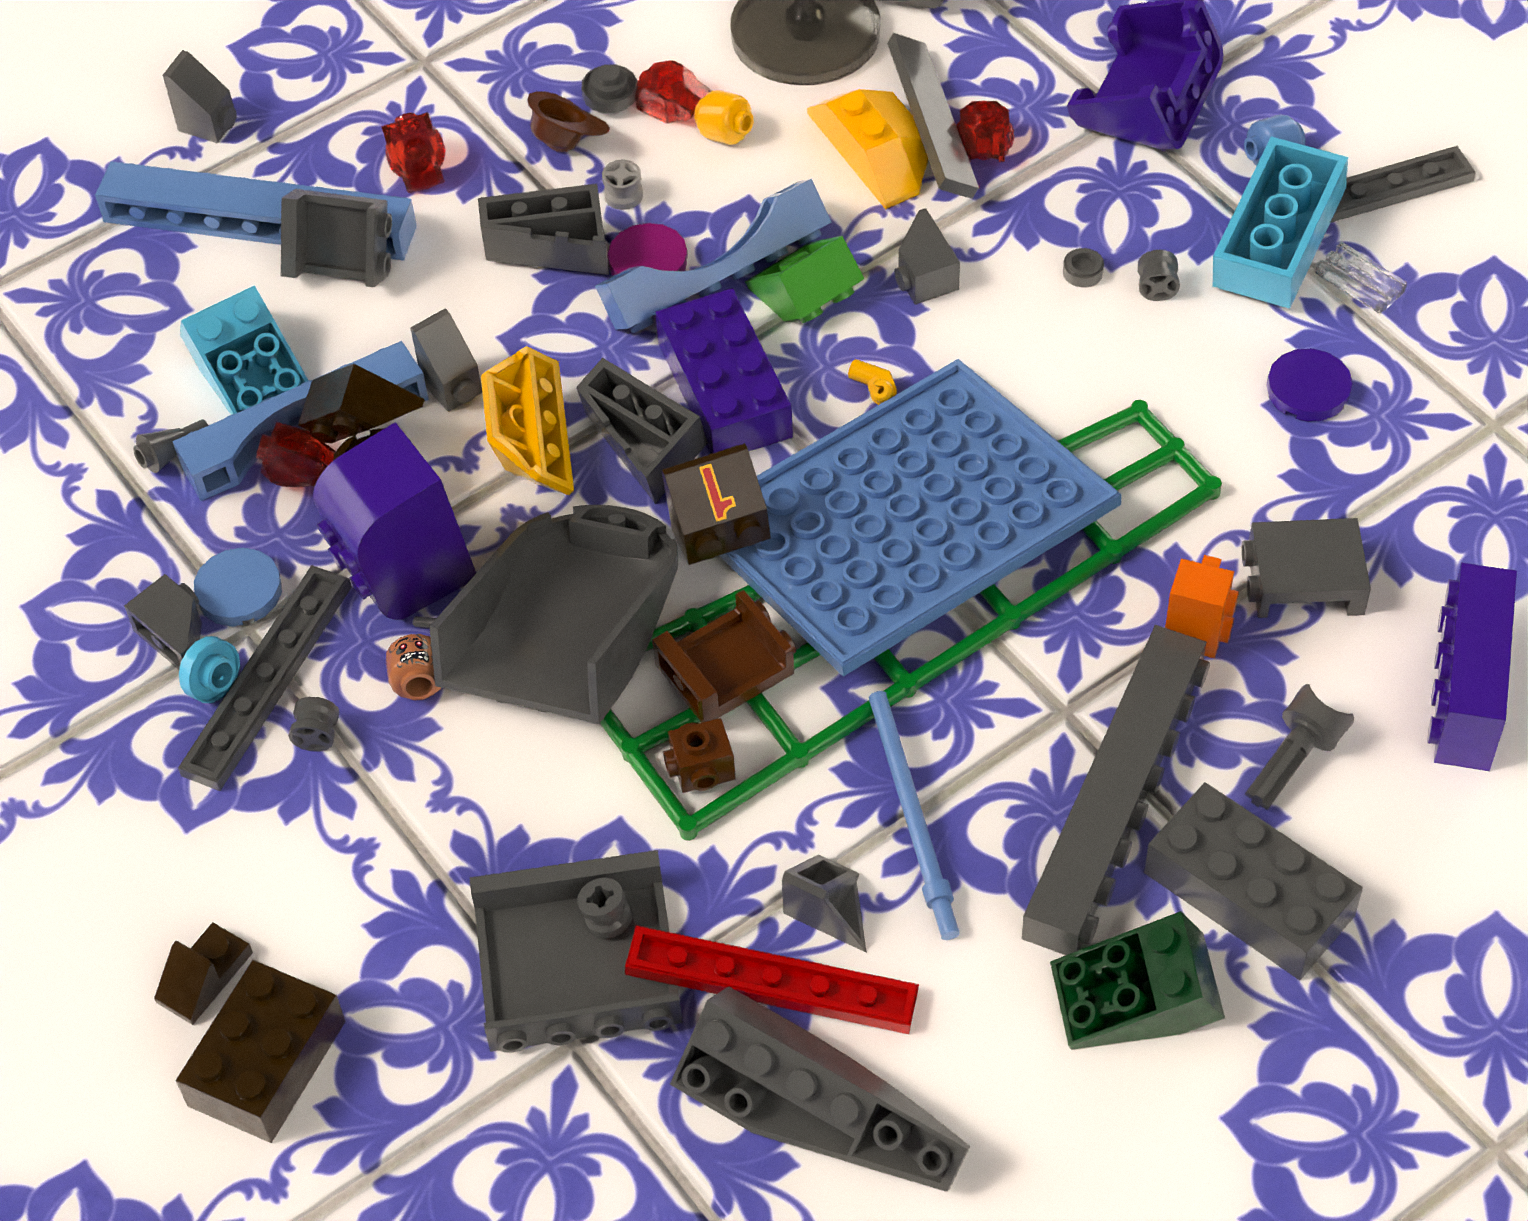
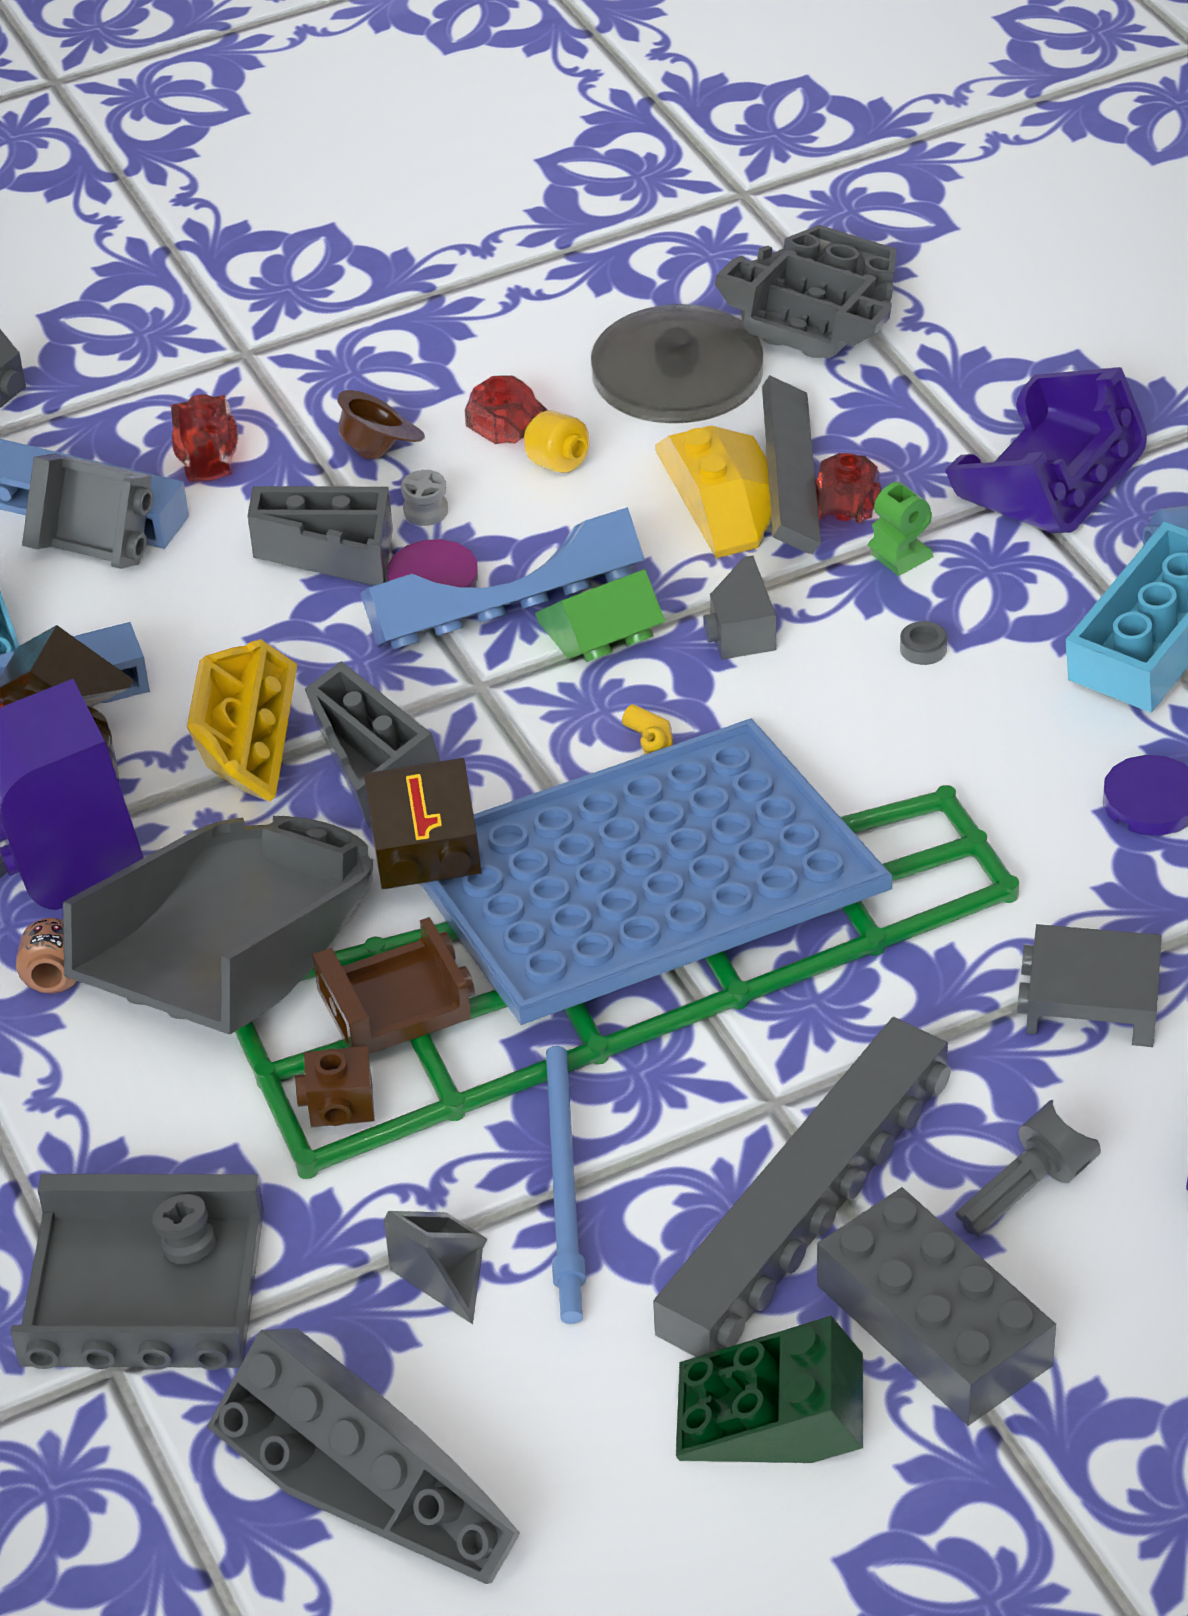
camera: 10 degrees right, 10 degrees down
(445, 360) = (170, 644): dark grey slope -> none
(609, 88) = (437, 399): dark grey plate -> none
(724, 372) = (481, 698): dark purple brick -> none
(772, 979) = (356, 1333): red tile -> none
(1040, 168) = (901, 521): none -> bright green leg
(1158, 275) = (1005, 658): dark grey wheel -> none
(1203, 602) = (952, 1000): orange brick -> none

